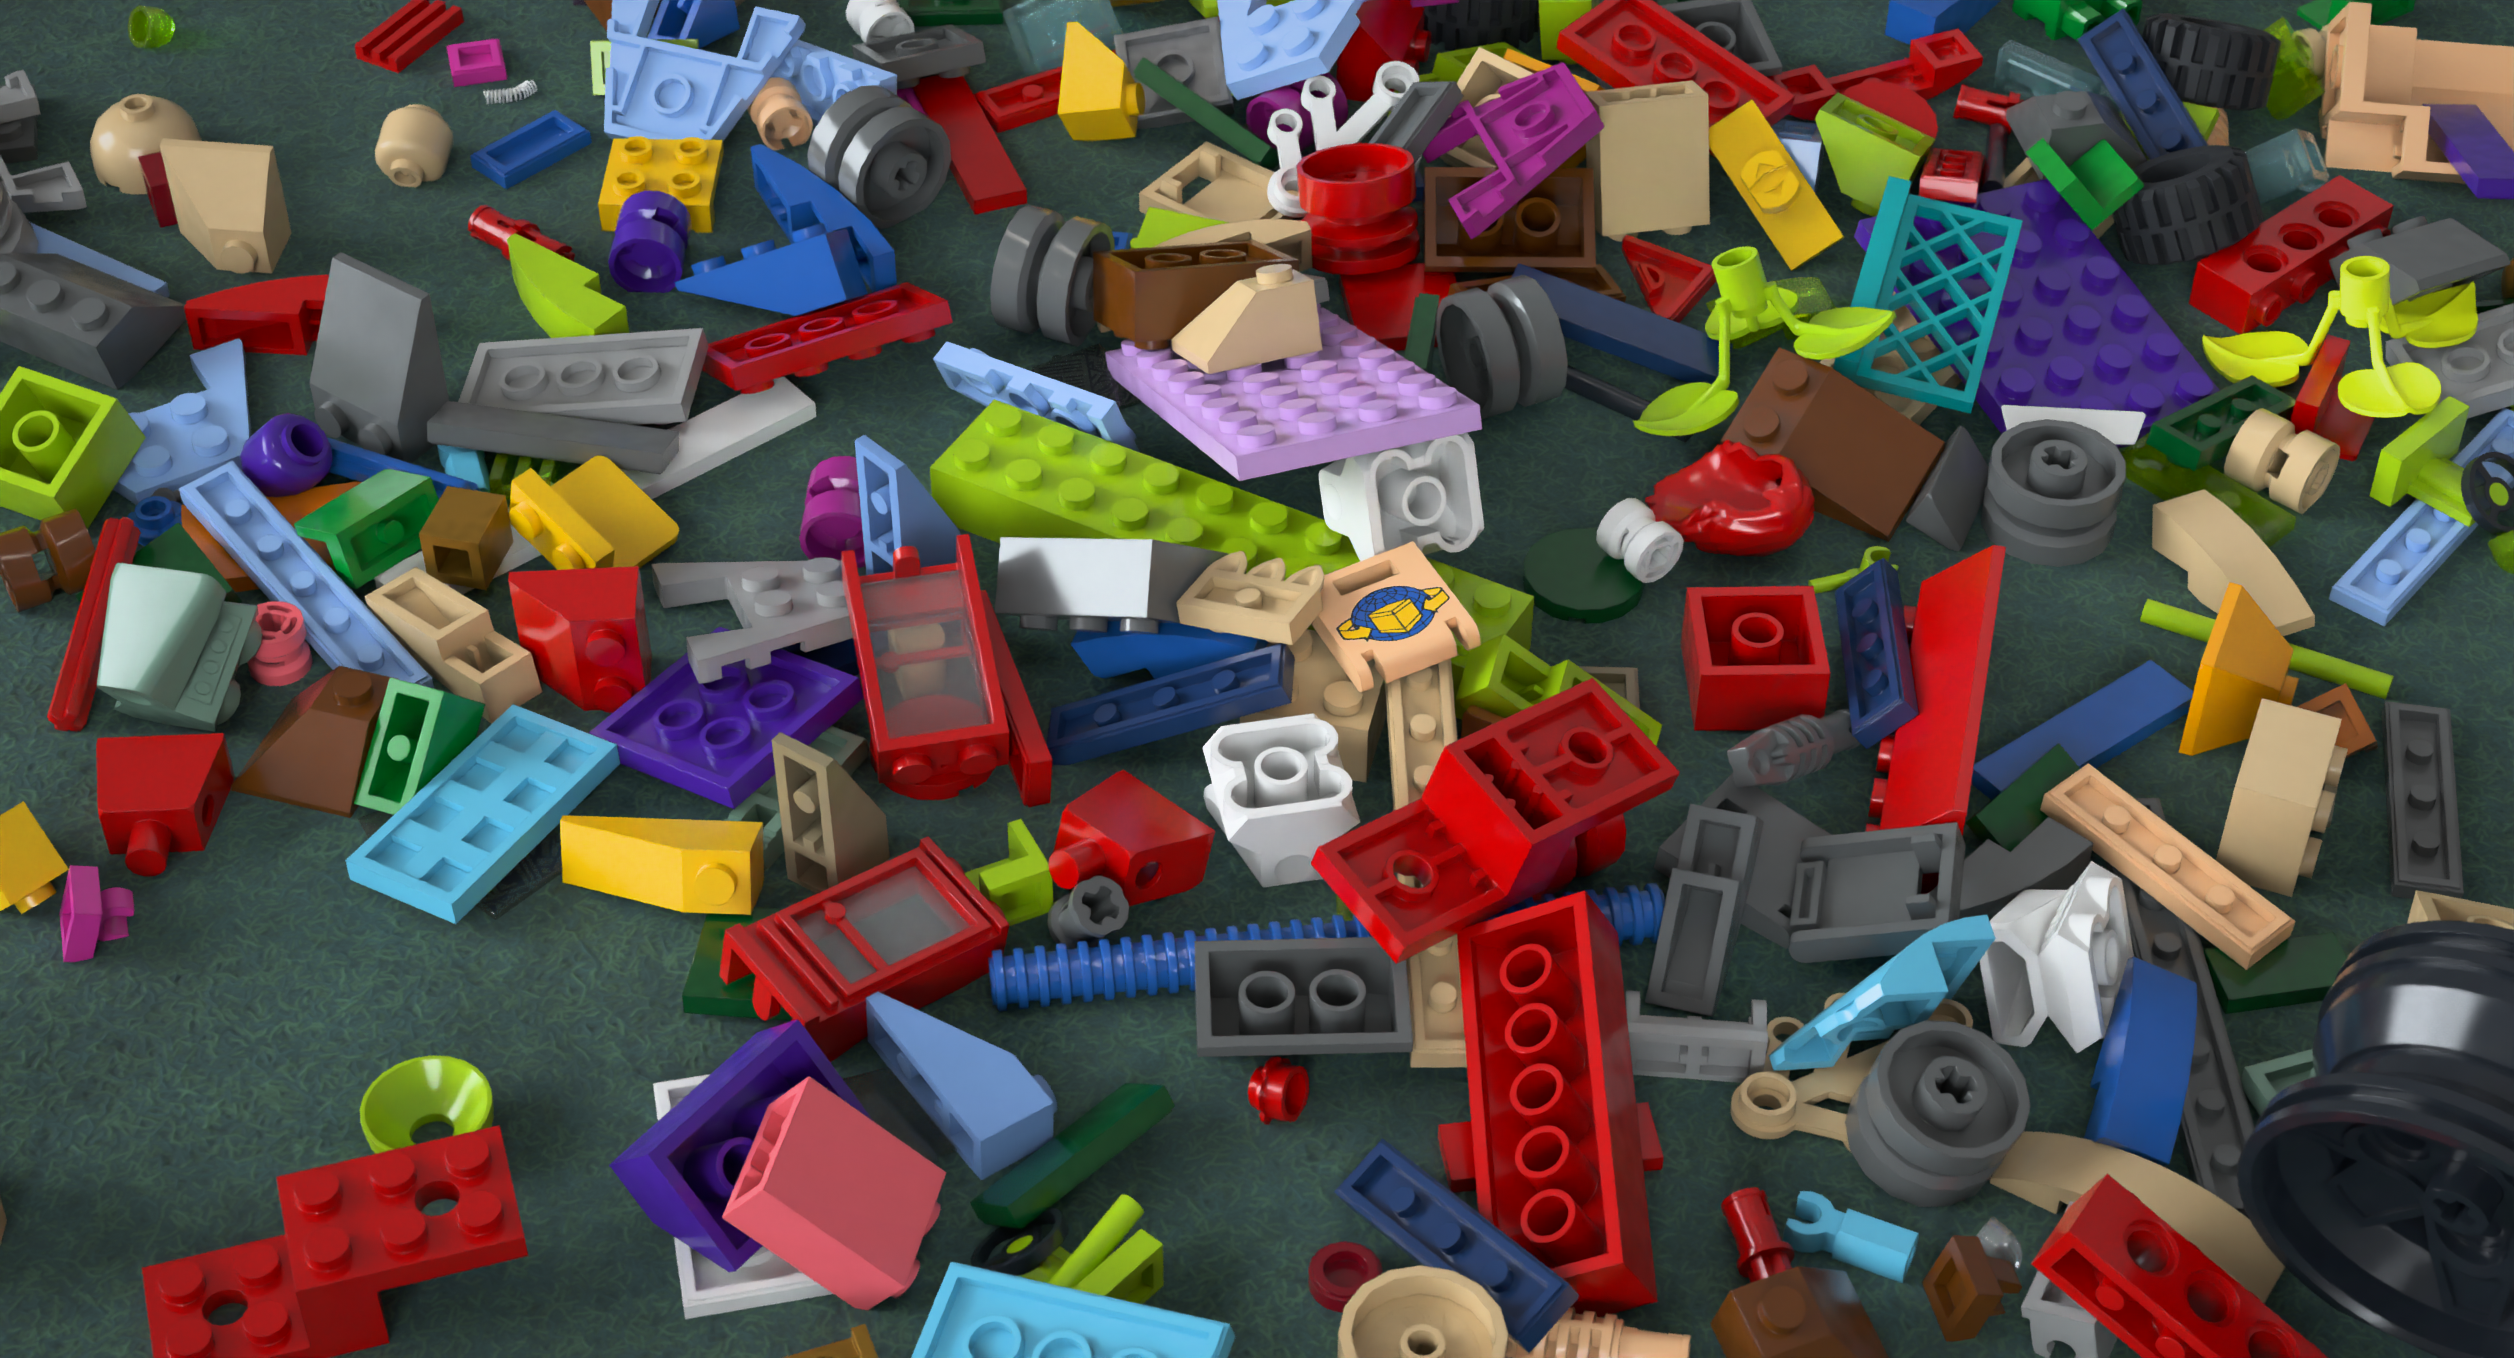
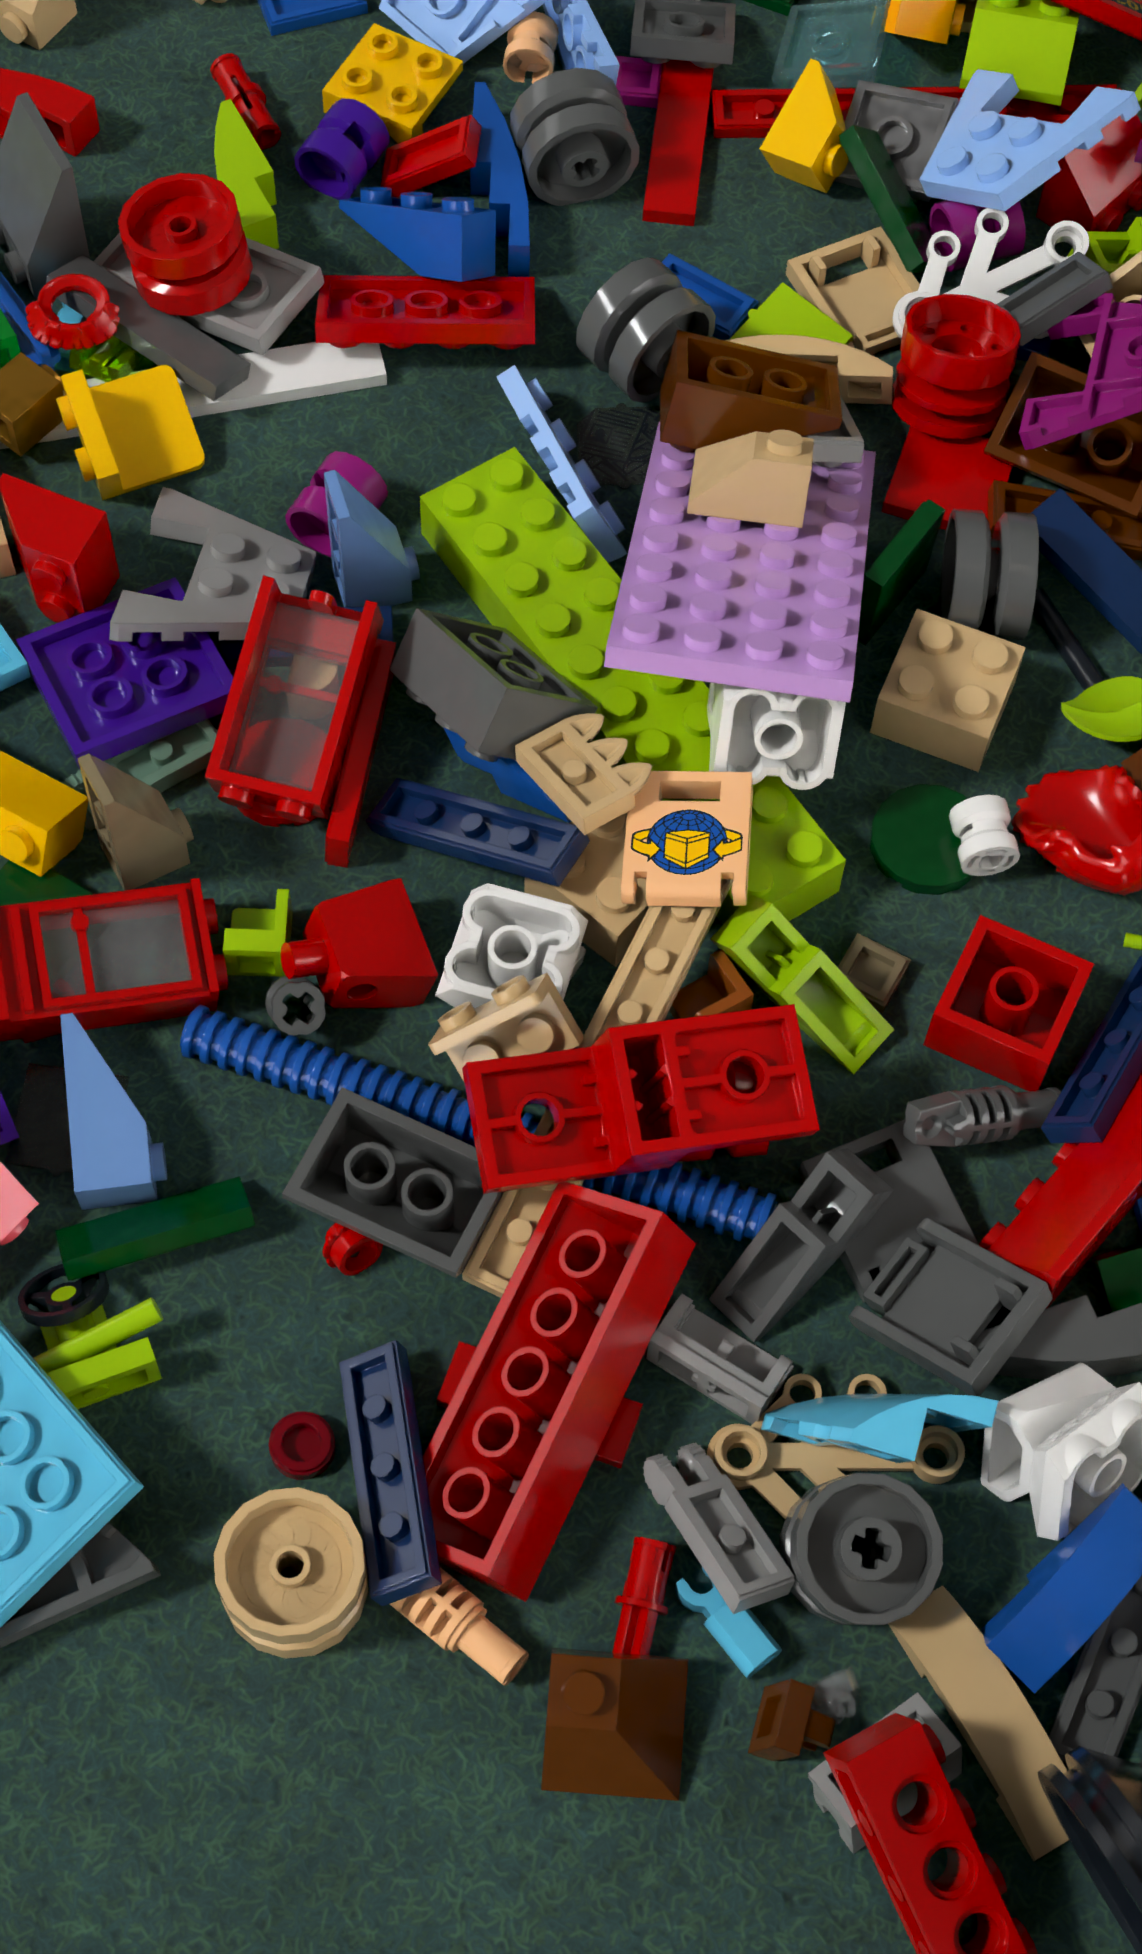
camera: 25 degrees right, 20 degrees up
(473, 463) = (50, 330): none -> red piece
(563, 343) = (185, 244): none -> red wheel
(745, 217) = (432, 156): none -> red tile
(1332, 805) = (517, 1022): none -> tan bracket
(1532, 452) = (947, 689): none -> tan brick
(1793, 1157) = (719, 1528): none -> light grey hinge

